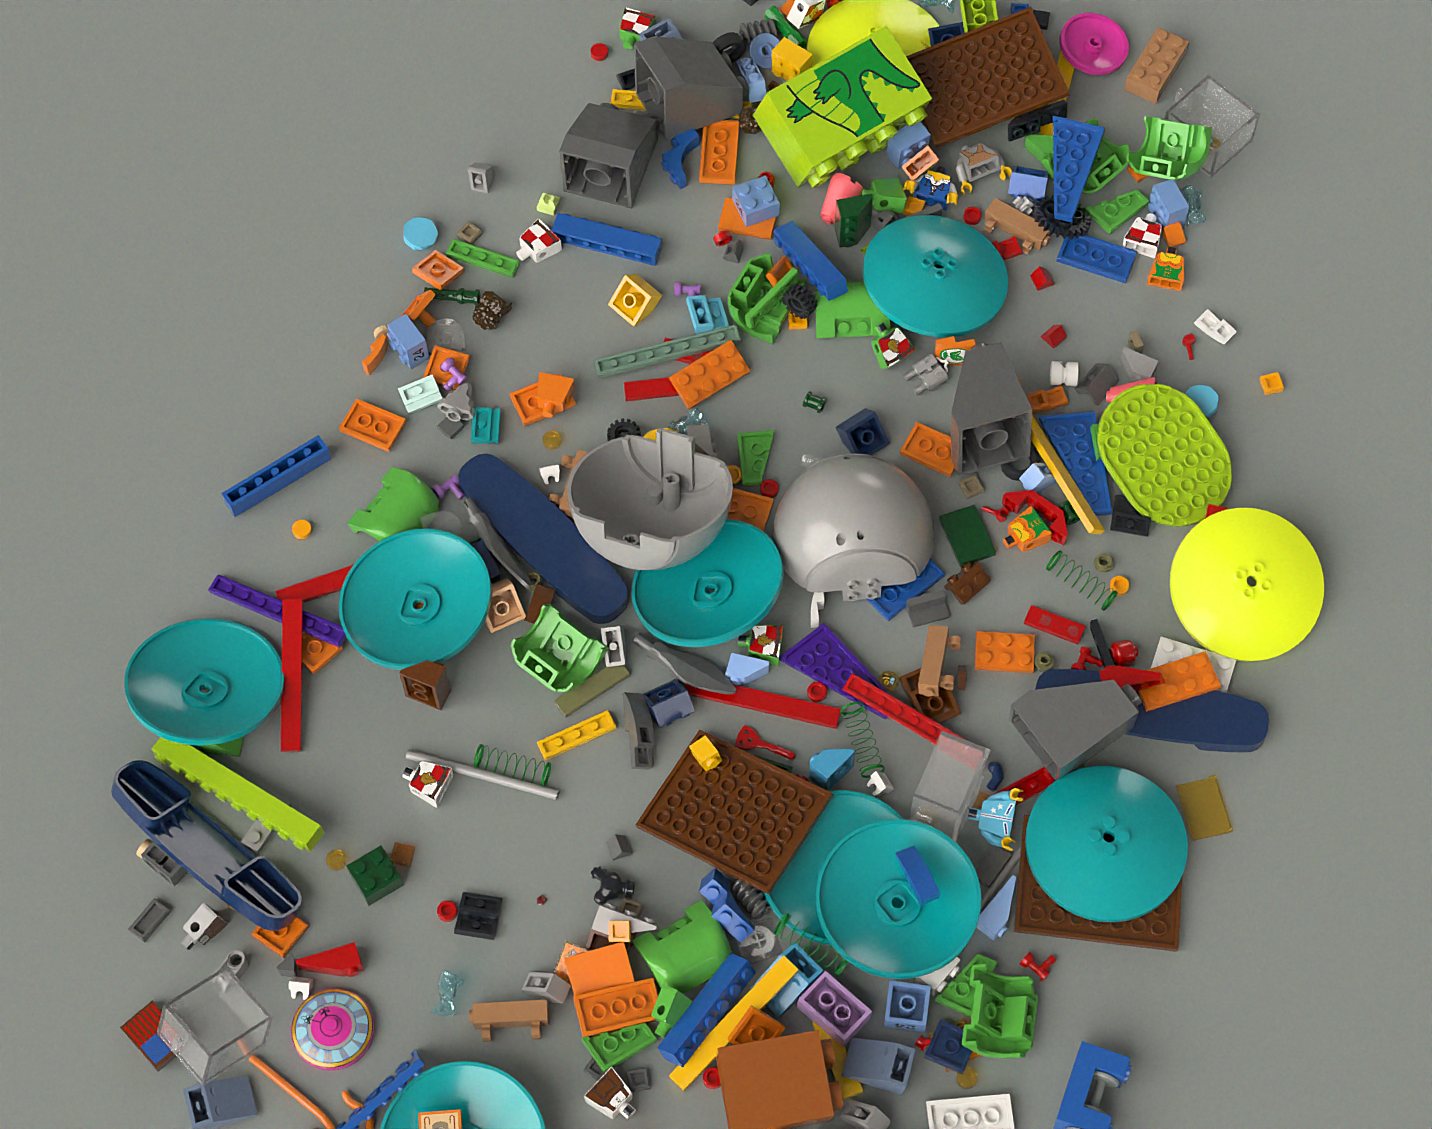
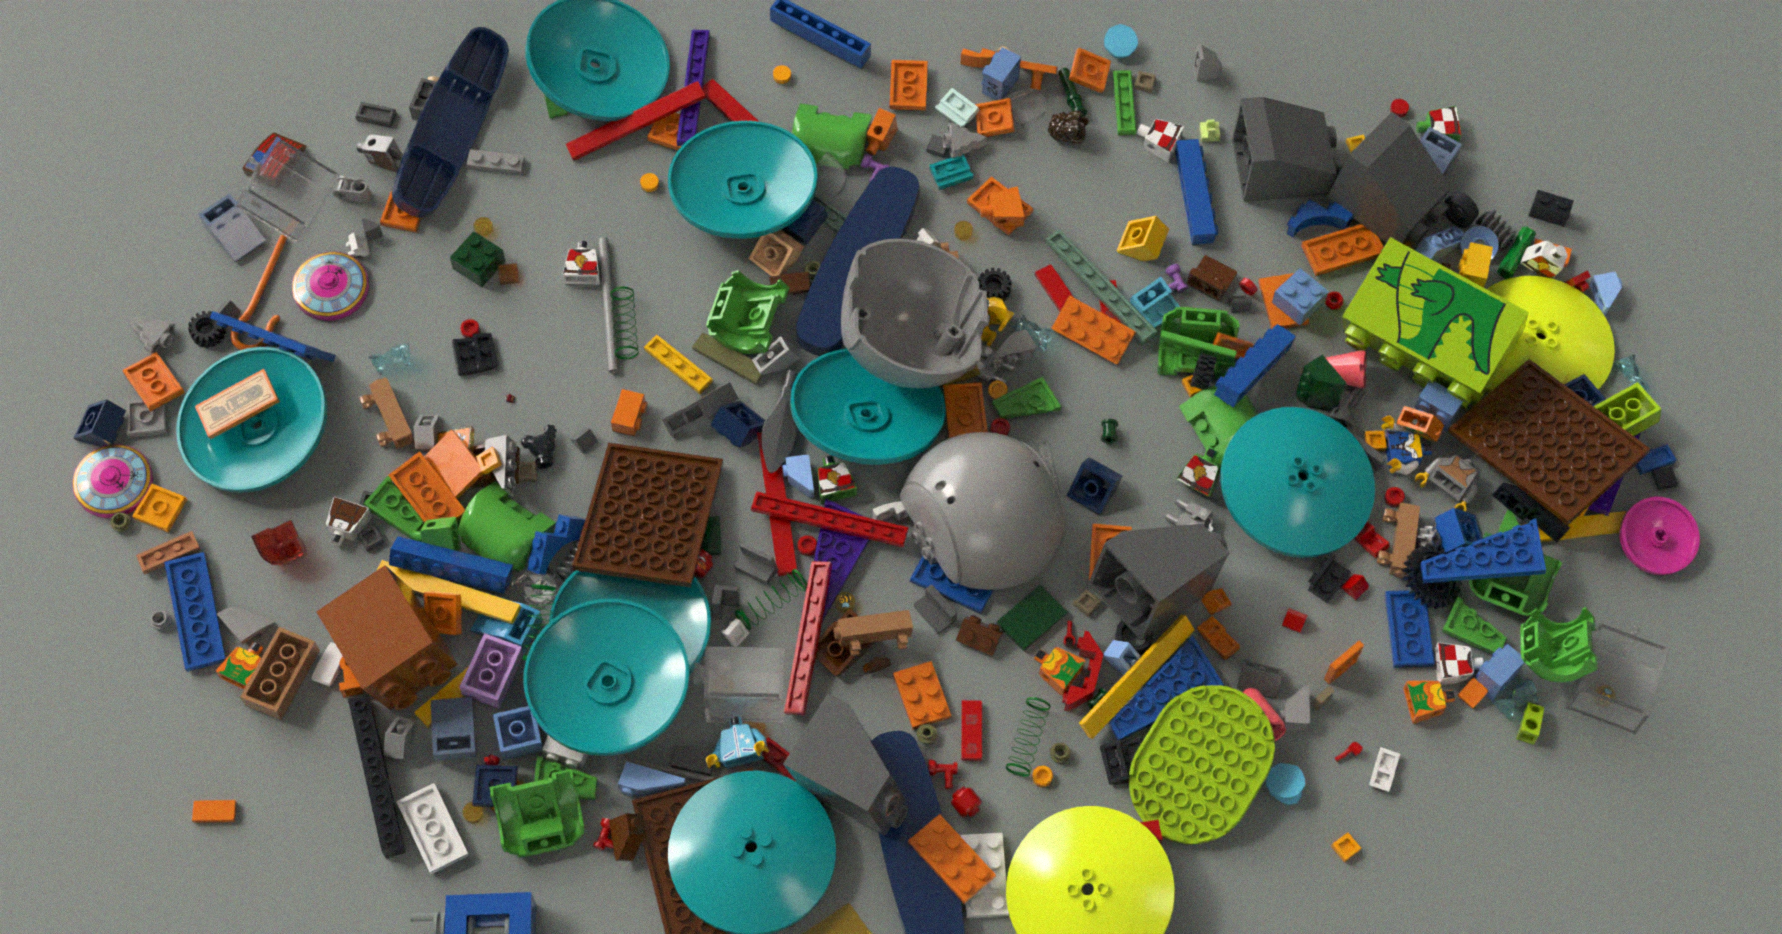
camera: 65 degrees right, 0 degrees up
(239, 792) = (506, 134): lime brick -> none
(337, 961) = (391, 266): red slope -> none
(363, 690) = (649, 182): none -> light orange tile
(414, 461) = (881, 131): none -> orange torso
(426, 683) = (667, 223): reddish brown slope -> none
(448, 365) = (993, 115): medium lavender piece -> none
(495, 543) = (827, 225): dark grey animal -> none
(611, 795) = (629, 412): none -> orange brick
(700, 262) = (1211, 277): none -> reddish brown bracket
(705, 753) = (694, 468): yellow brick -> none
(758, 743) = (734, 514): red piece -> none
(803, 661) = (829, 519): none -> red tile
(822, 738) = (756, 564): none -> dark grey panel
(830, 766) = (726, 573): dark azure slope -> none
(847, 780) = (724, 596): none -> dark grey panel
(887, 194) = (1369, 406): bright green torso -> none
(918, 875) = (629, 680): blue slope -> none
(951, 350) = (1221, 525): orange slope -> none
(997, 775) = (787, 733): dark blue arm -> none
(1028, 295) = (1328, 579): none -> black bracket
(1046, 945) = (627, 836): none -> reddish brown slope
(1064, 373) = (1251, 638): white wheel -> none
(1100, 643) = (965, 779): black tile -> none
(1114, 312) = (1344, 662): none -> orange tile
(1136, 678) = (924, 803): red slope -> none
(1156, 65) = (1670, 606): medium nougat brick -> none
(1217, 205) = (1530, 723): none -> lime leg

